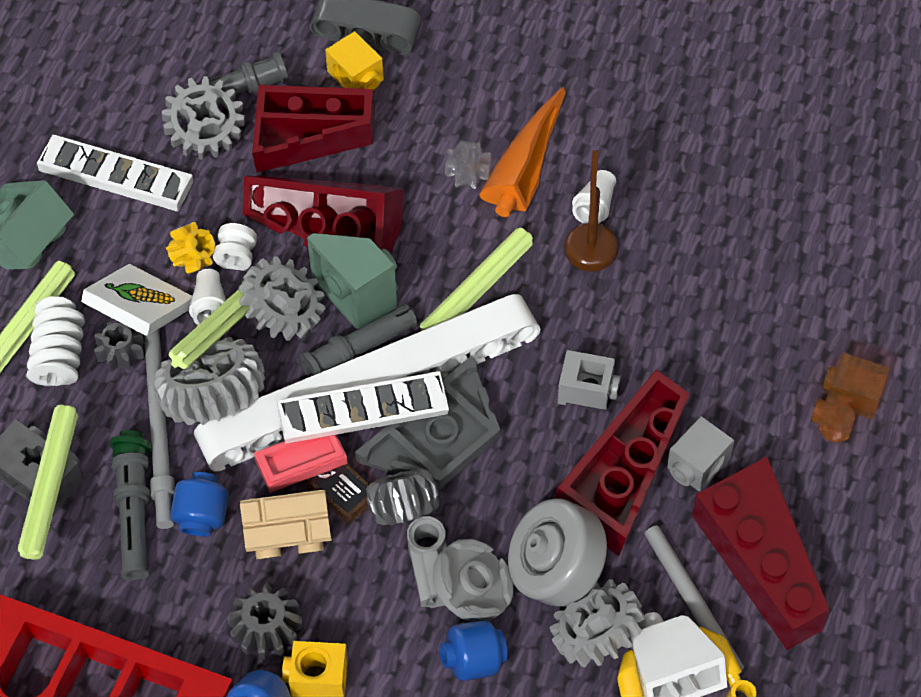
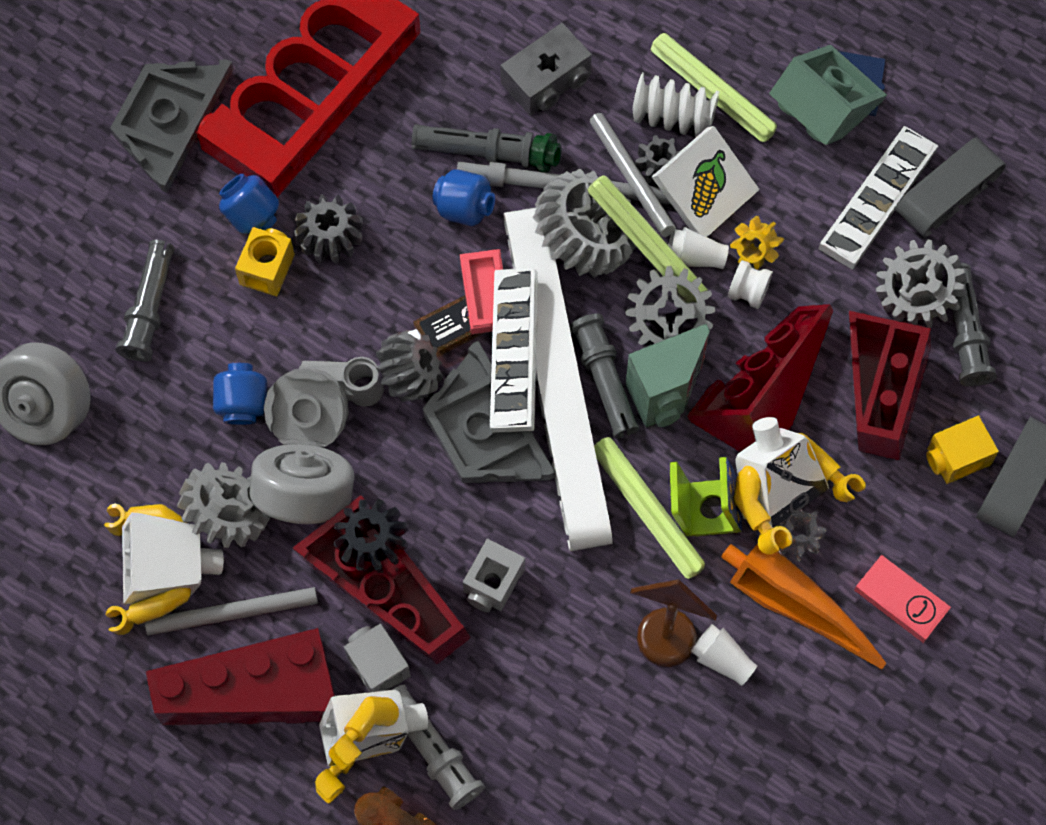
camera: 105 degrees right, 10 degrees up
(47, 482) = (511, 66): yellowish green axle -> none
(96, 115) = (949, 185): none -> dark grey beam
(139, 365) = (632, 175): none -> light grey bar
(285, 522) = (419, 263): tan brick -> none
(433, 175) = (781, 477): none -> torso
(456, 210) = (688, 498): none -> lime piece
(499, 89) = (902, 598): none -> coral tile
(599, 469) = (359, 523): none -> black gear
(769, 381) = (443, 763): none -> light grey pin
(778, 428) = (363, 728): none -> torso

